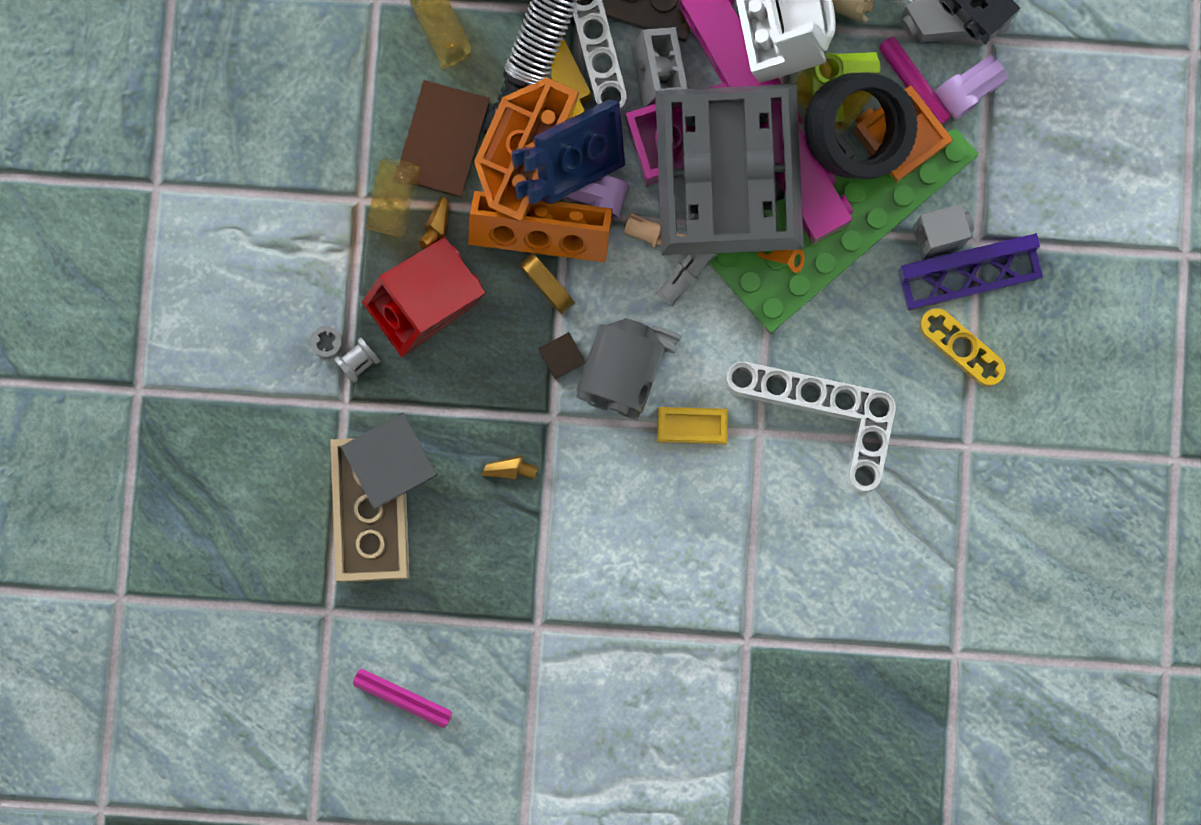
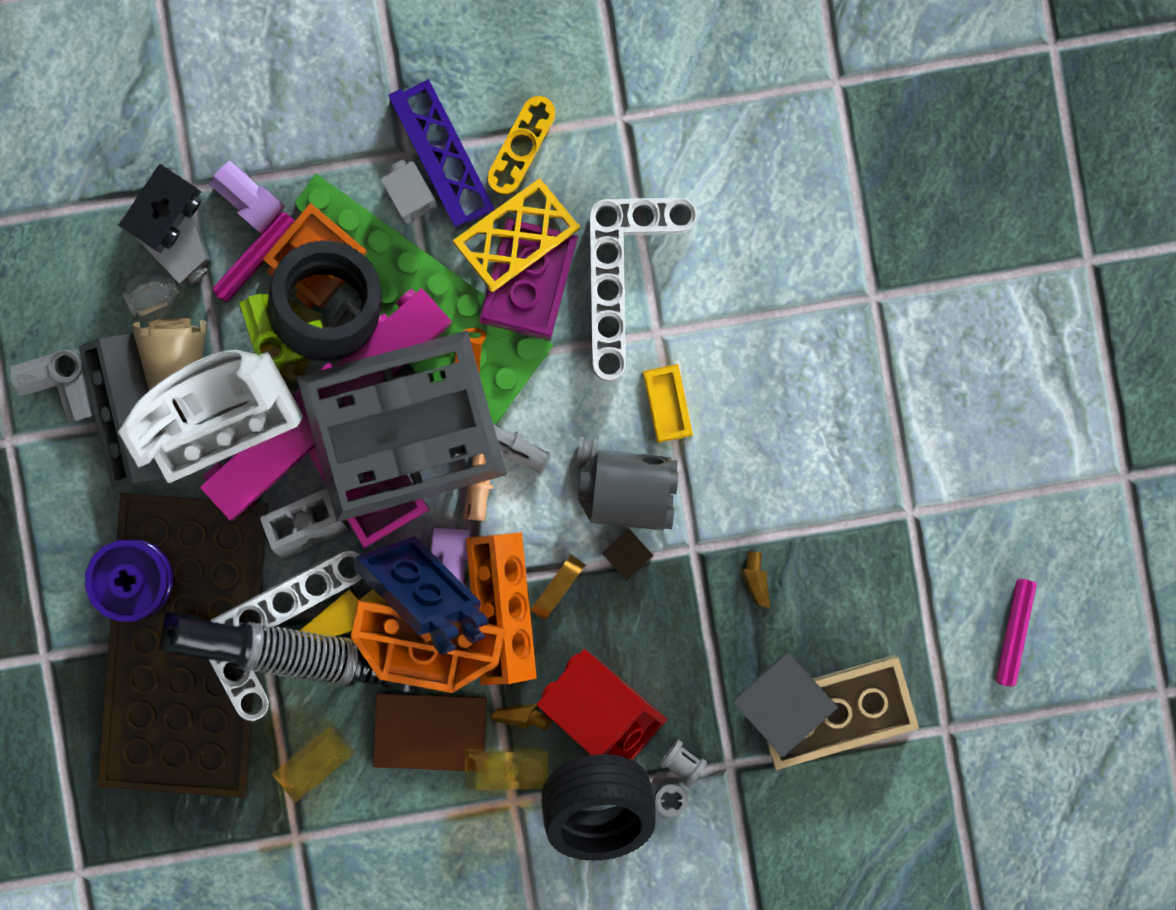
camera: 100 degrees left, 5 degrees up
(358, 274) = (596, 782): none -> black tyre
(837, 323) = (533, 297): none -> magenta tile
(908, 327) = (515, 205): none -> yellow window

